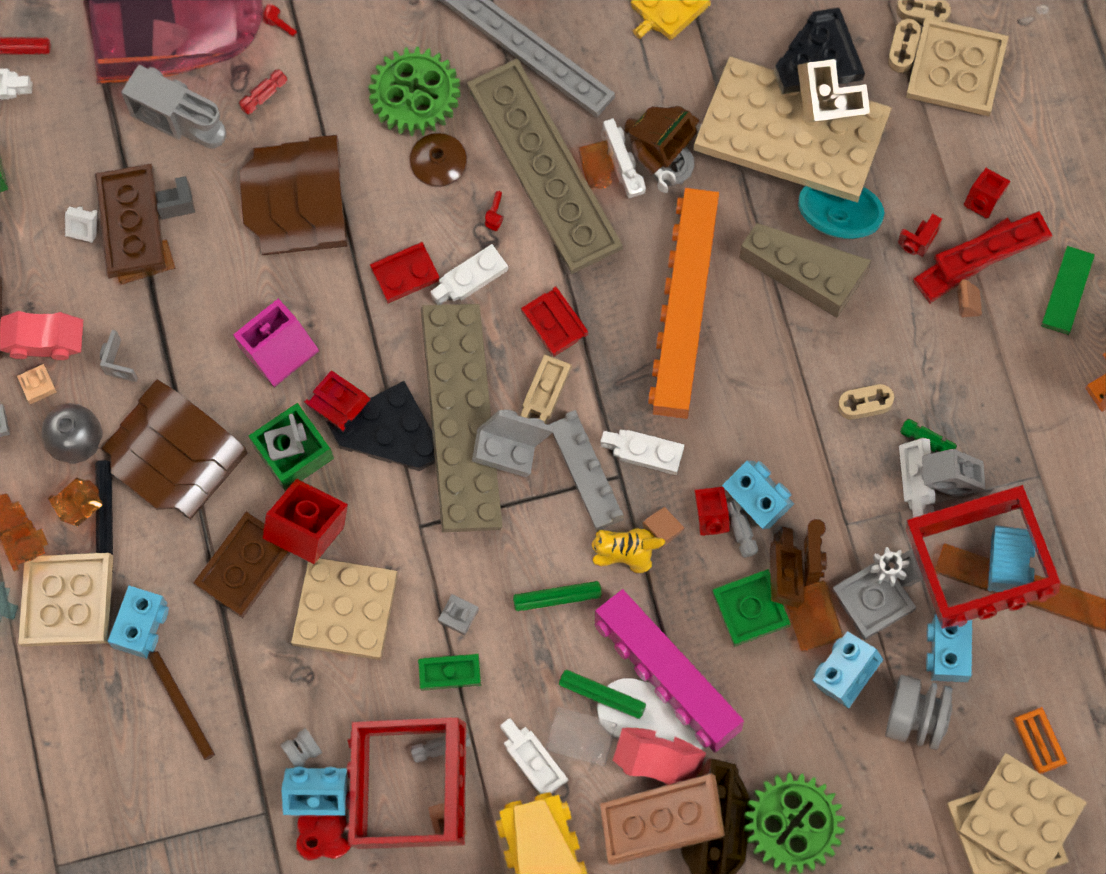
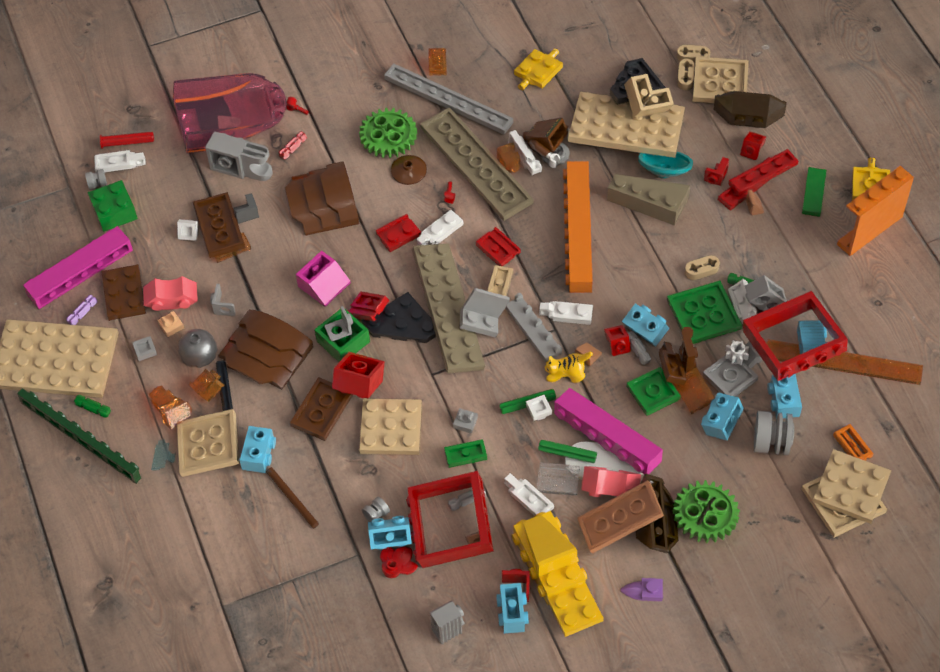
camera: 10 degrees left, 15 degrees down
(571, 613) = (539, 408): none -> white tile
(854, 482) = (705, 311): none -> green plate
(991, 130) = (749, 108): none -> dark brown wedge

